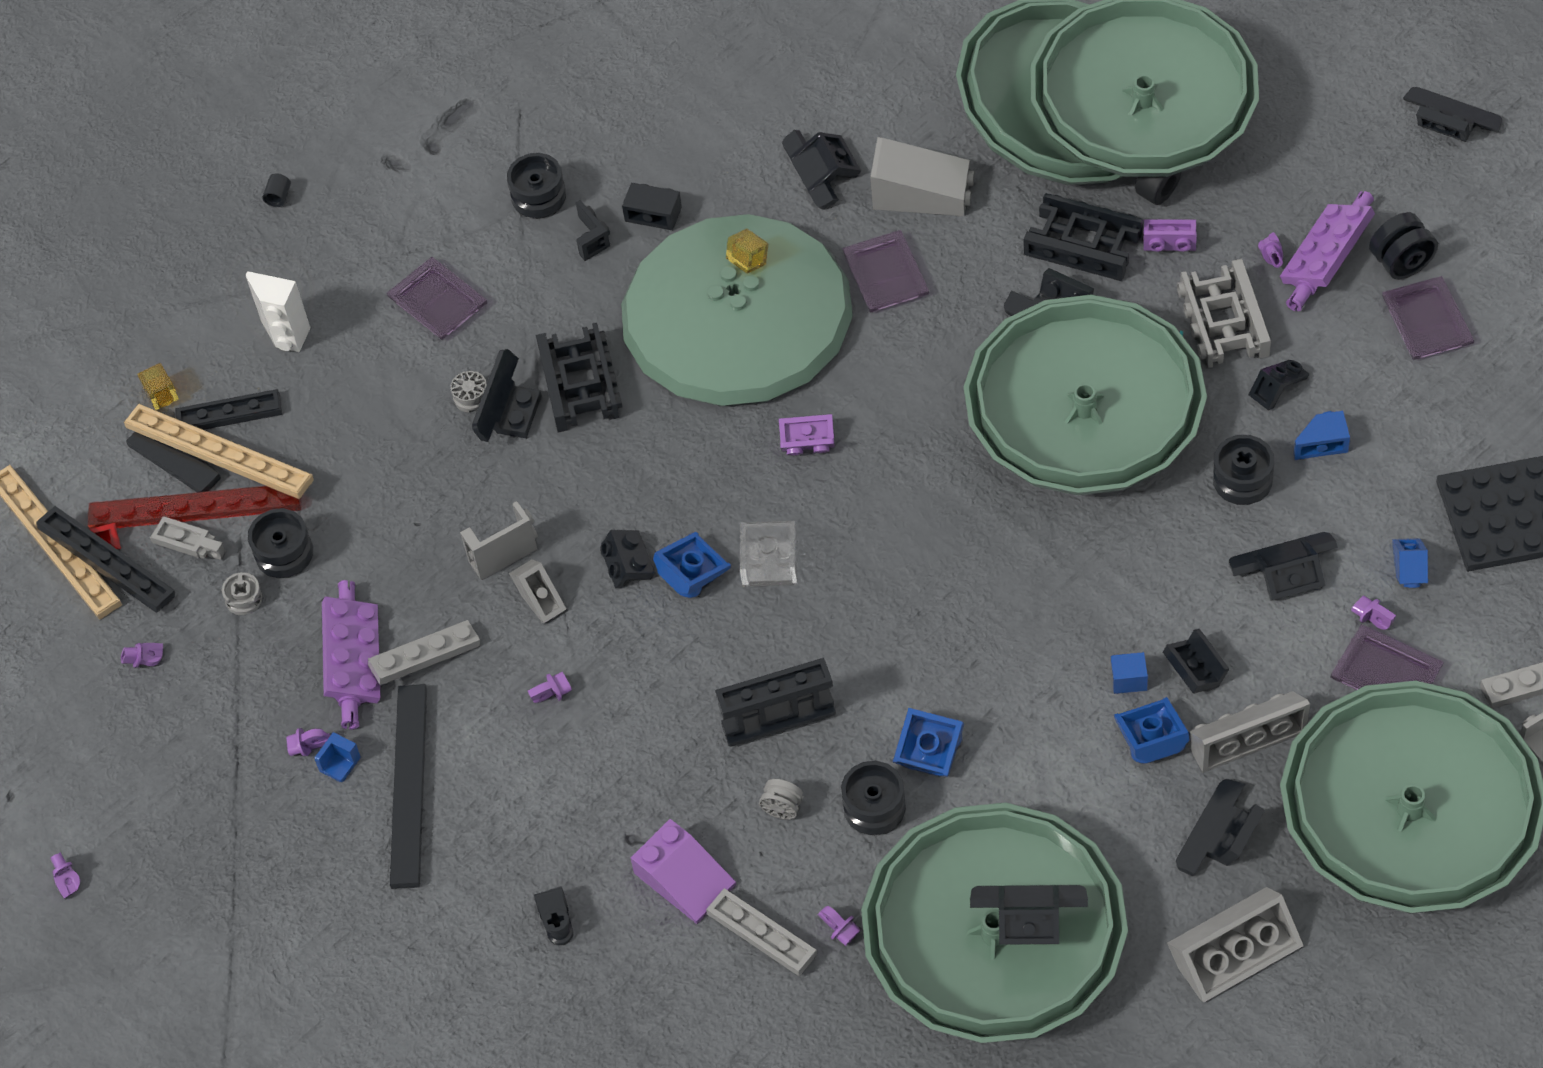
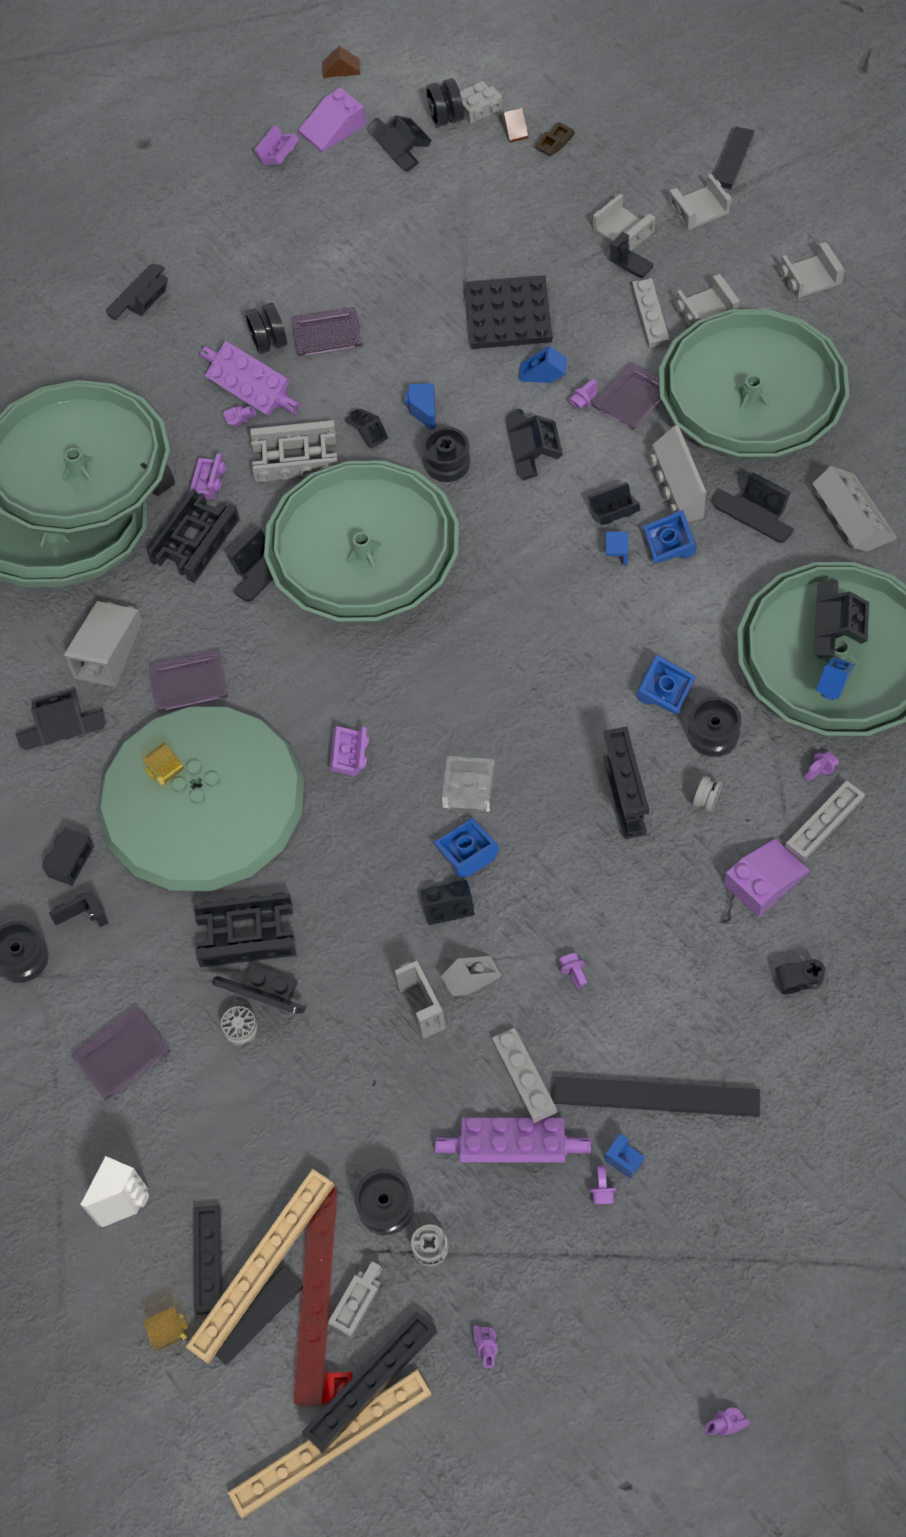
camera: 85 degrees left, 5 degrees up
(937, 907) = (835, 678): none -> blue slope

